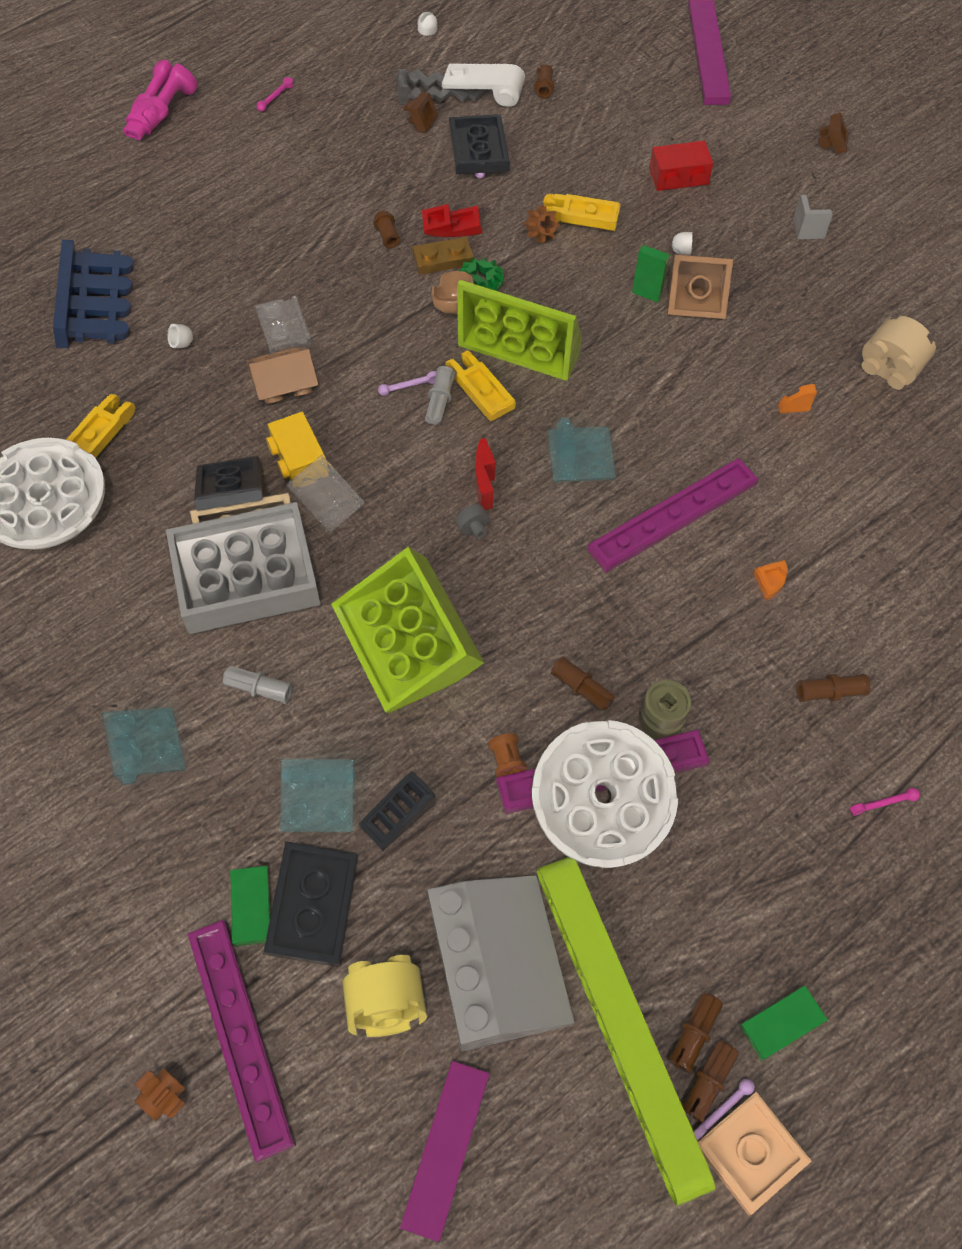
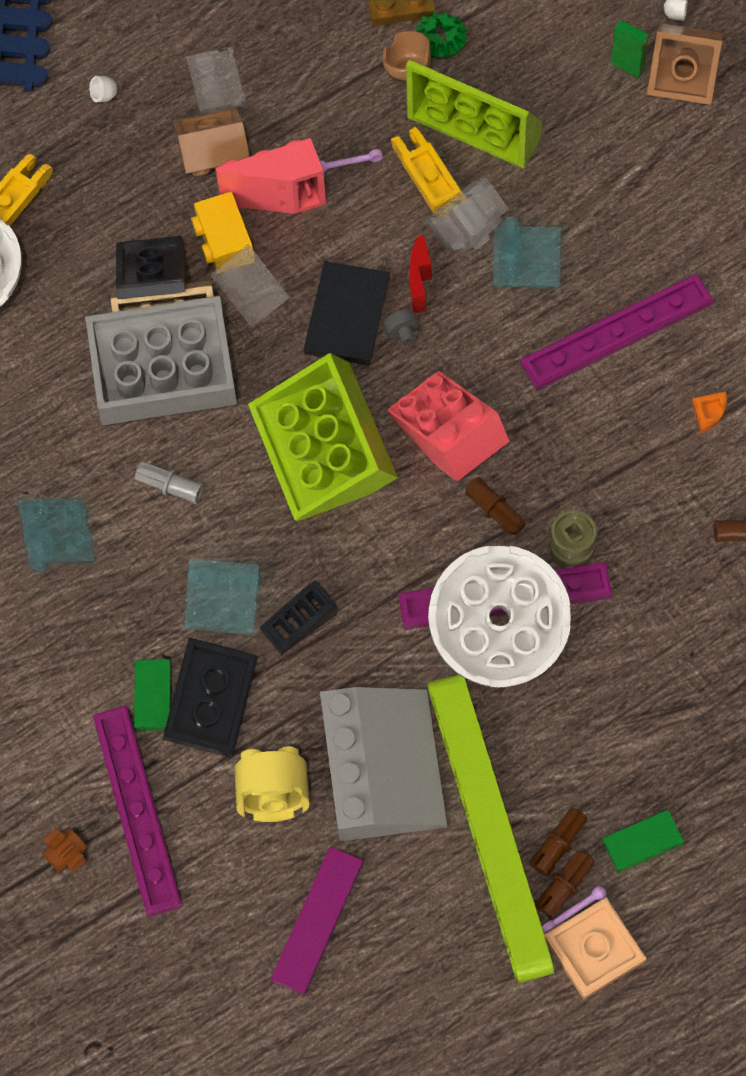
camera: 10 degrees right, 5 degrees up
(343, 398) = (276, 180): none -> coral slope
(419, 513) = (347, 312): none -> black tile
(440, 394) = (381, 178): light grey axle -> none
(507, 754) = (410, 571): dark orange bush -> none
(524, 420) = (468, 216): none -> clear brick
(529, 609) = (449, 425): none -> coral slope

